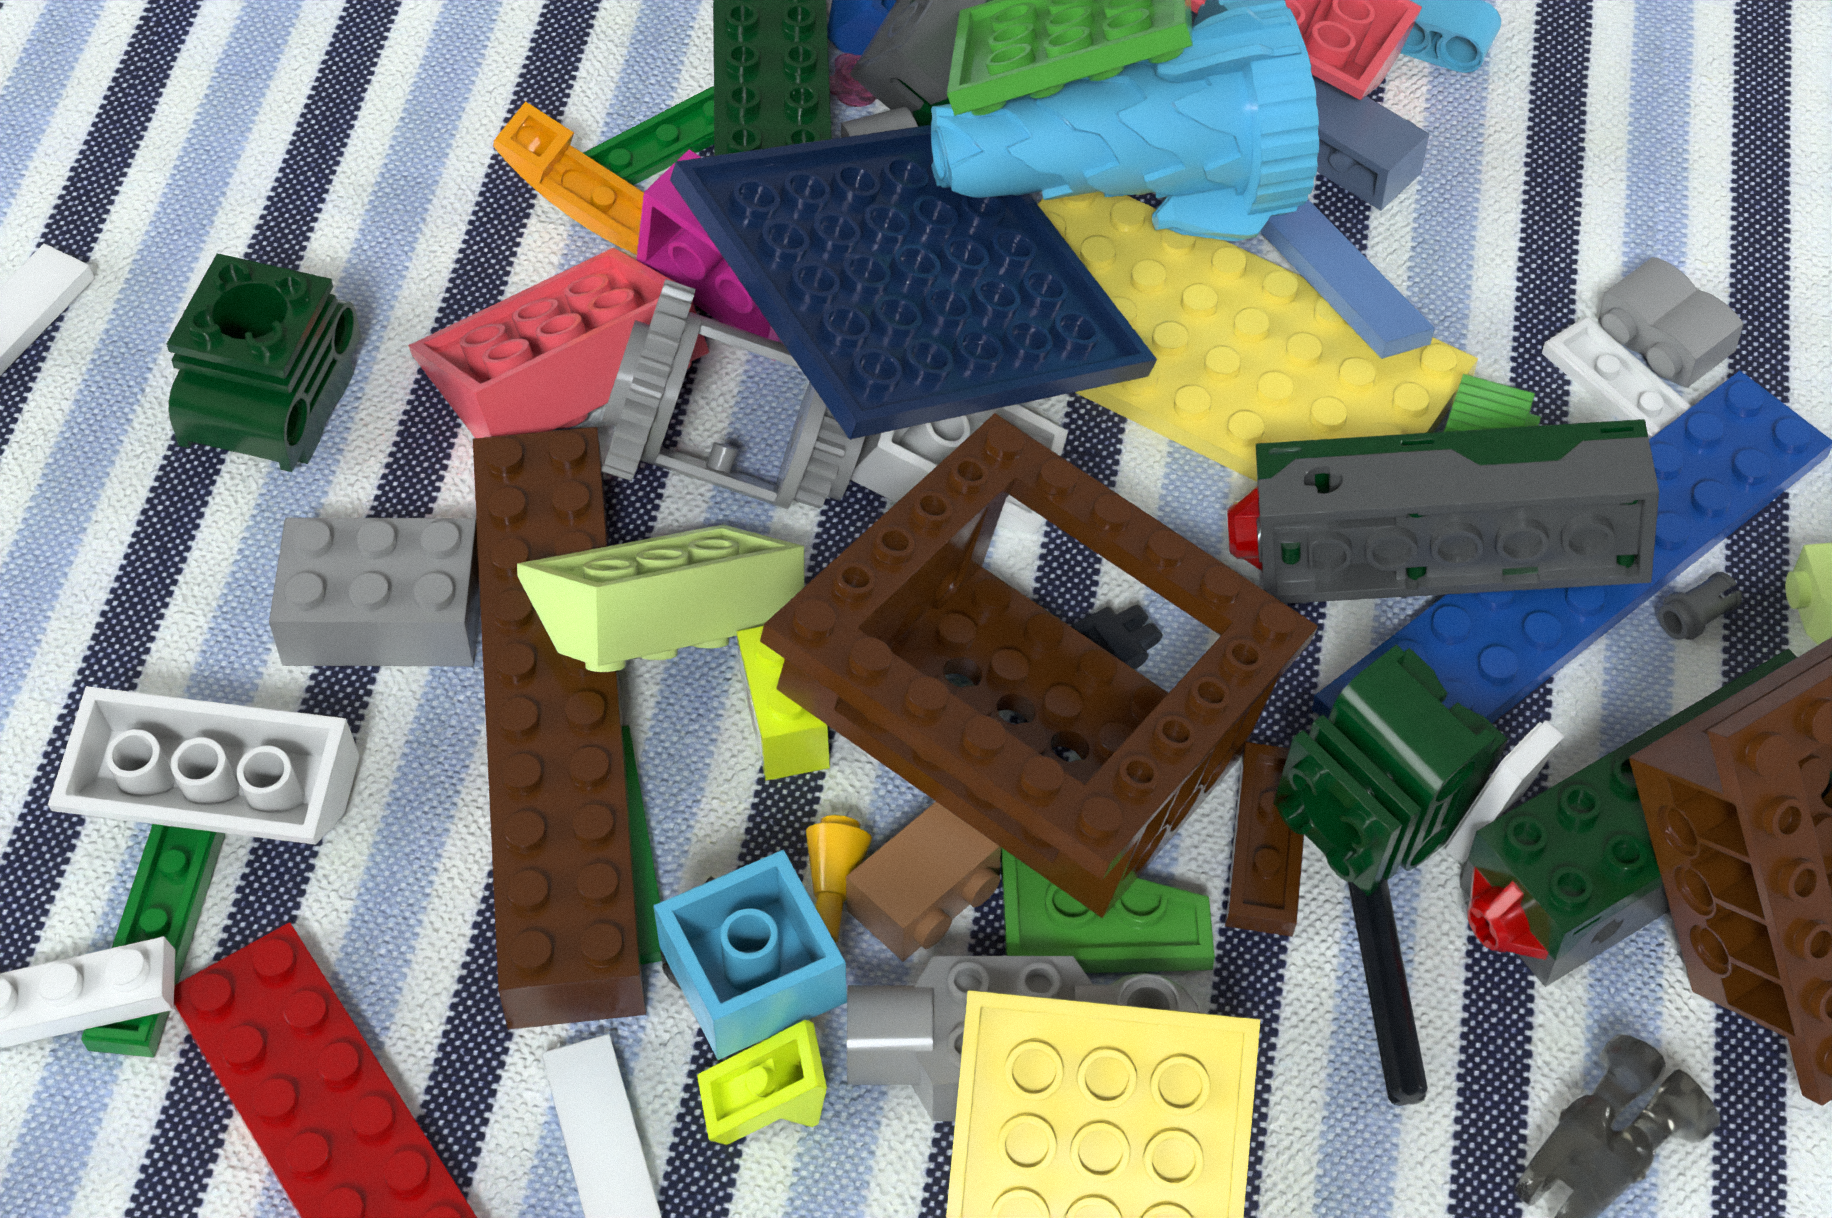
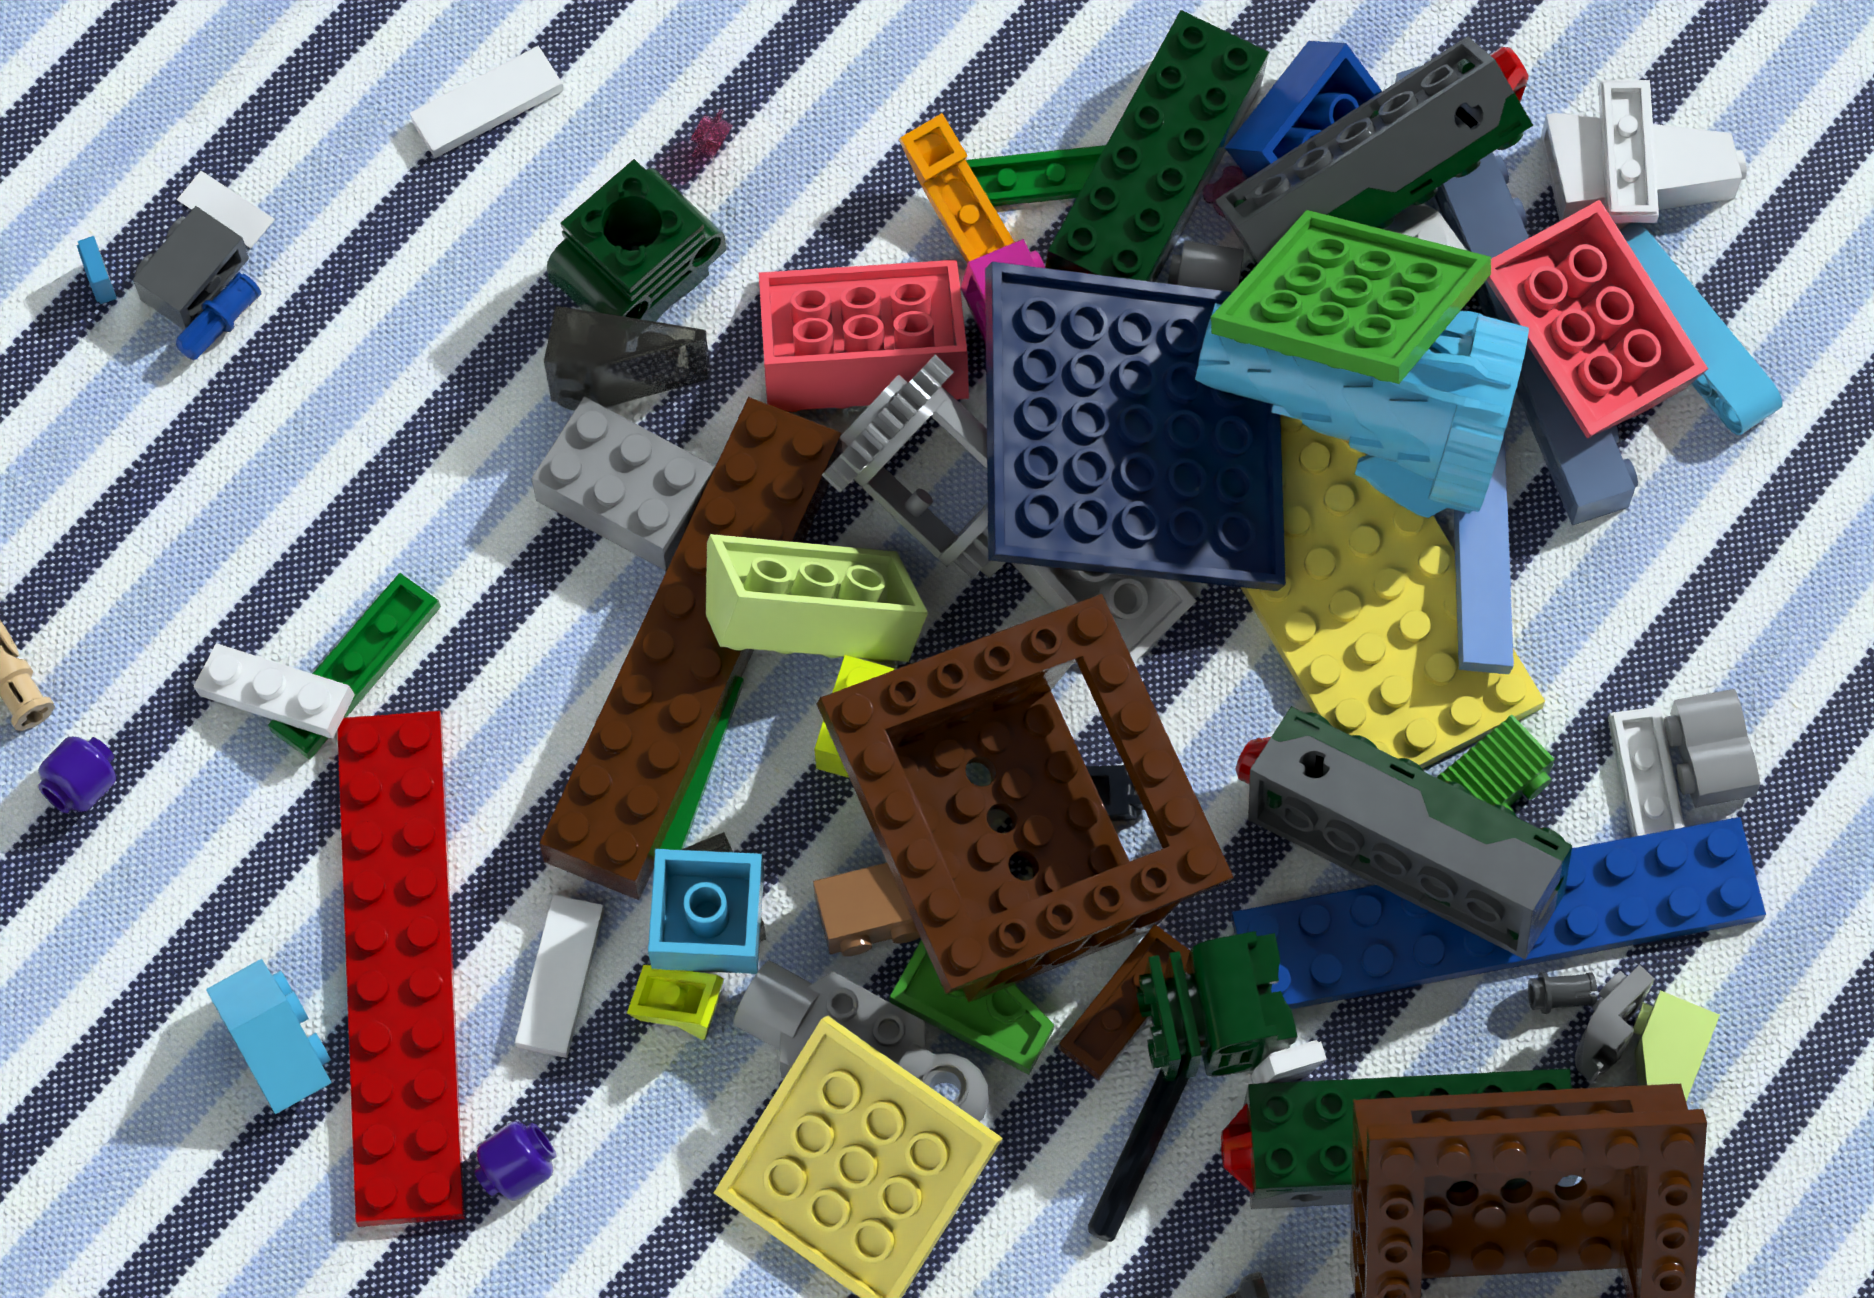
camera: 30 degrees right, 15 degrees up
(206, 766) = (435, 572): white slope -> none
(282, 241) = (710, 134): none -> clear pink plate
(307, 463) = (619, 357): none -> clear smoke slope
(834, 851) = (822, 858): yellow cone -> none
(1783, 593) = (1607, 1029): none -> light grey slope

